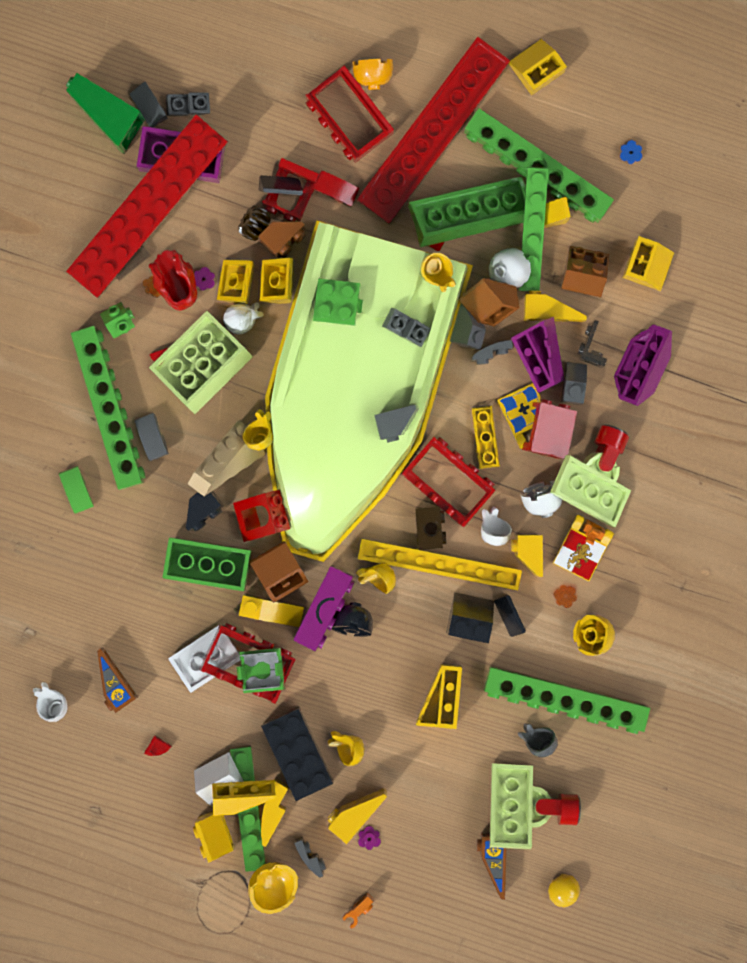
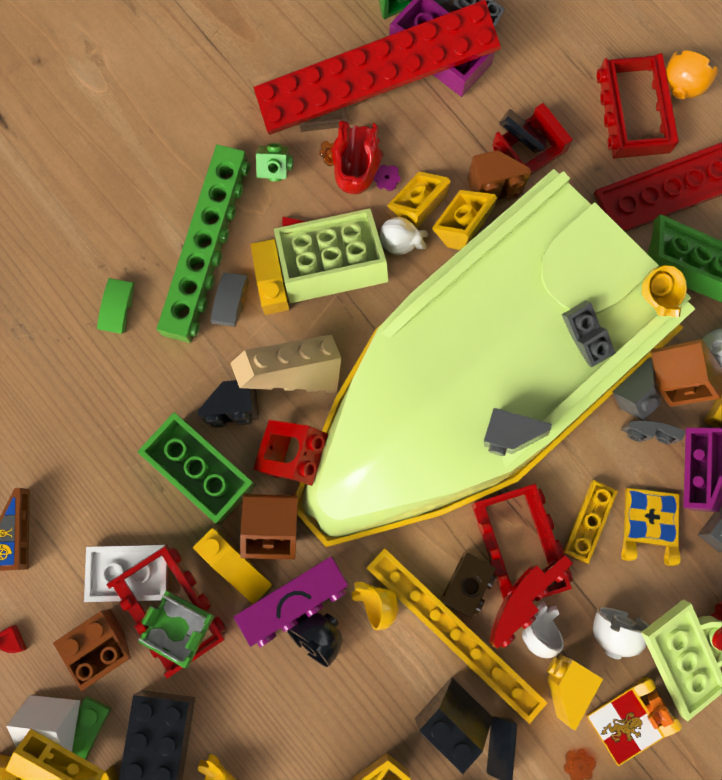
camera: 35 degrees right, 10 degrees down
(167, 402) = (269, 277): none -> yellow slope
(217, 716) = (93, 648): none -> dark orange slope
(254, 222) = (474, 145): dark brown gear -> none
(259, 433) = (344, 359): yellow piece -> none
(336, 188) = (581, 168): red slope -> none
(337, 302) = (526, 257): bright green piece -> none
(466, 523) = (517, 607): none -> red slope
(551, 430) = (674, 560): panel -> none

